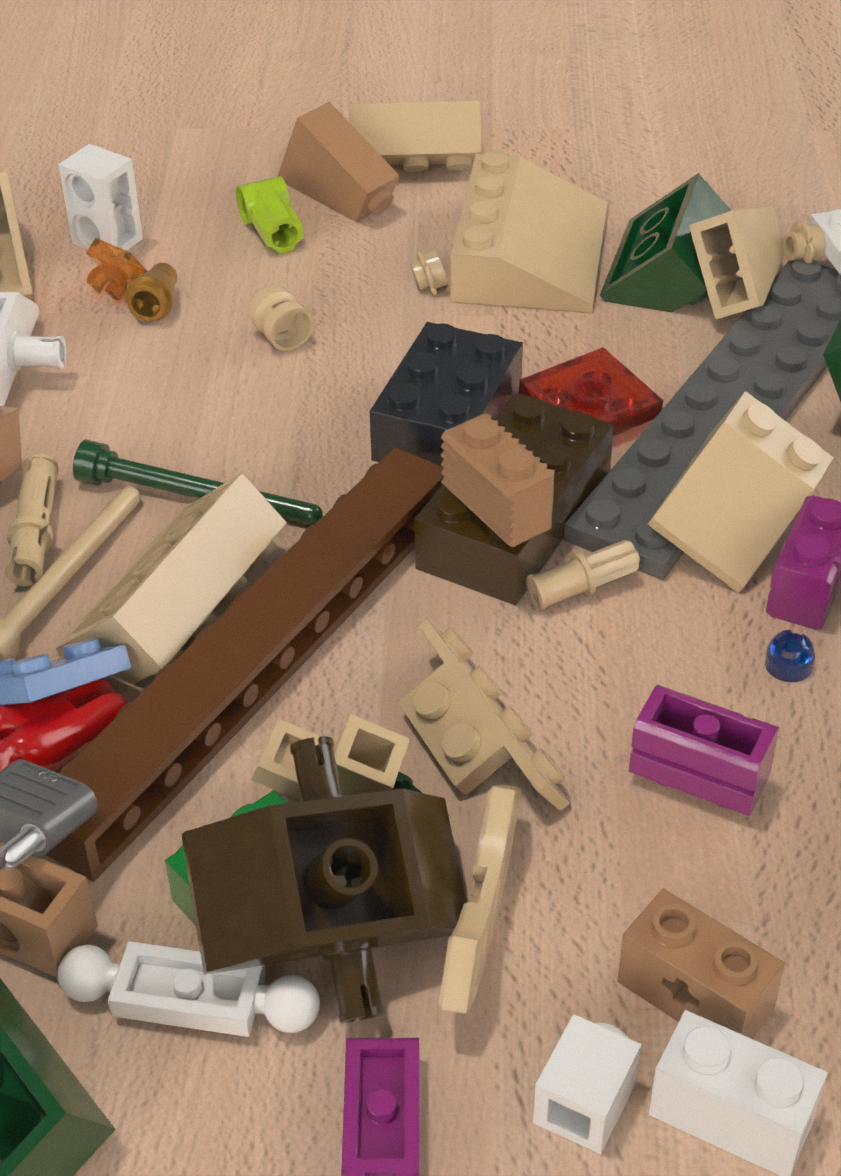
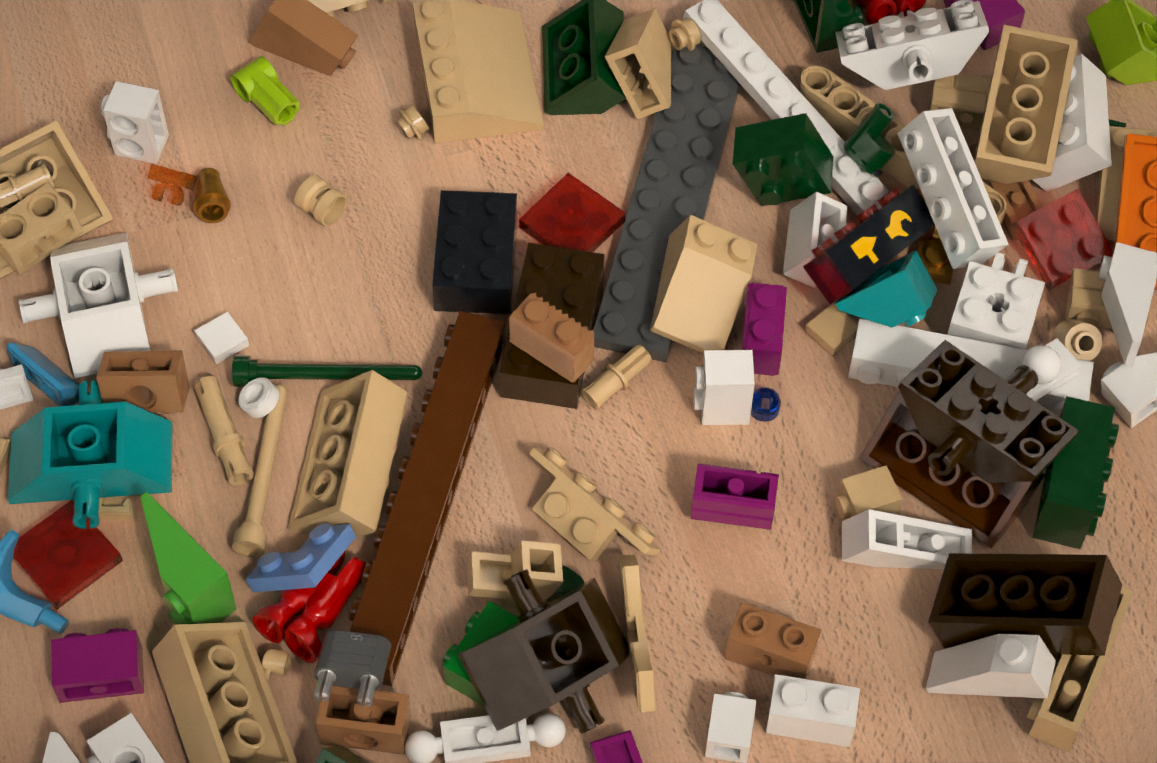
camera: 20 degrees left, 15 degrees up
(89, 422) = (221, 338): none -> white tile
(96, 493) = (258, 397): none -> white tile
(733, 607) = (724, 387): none -> white brick

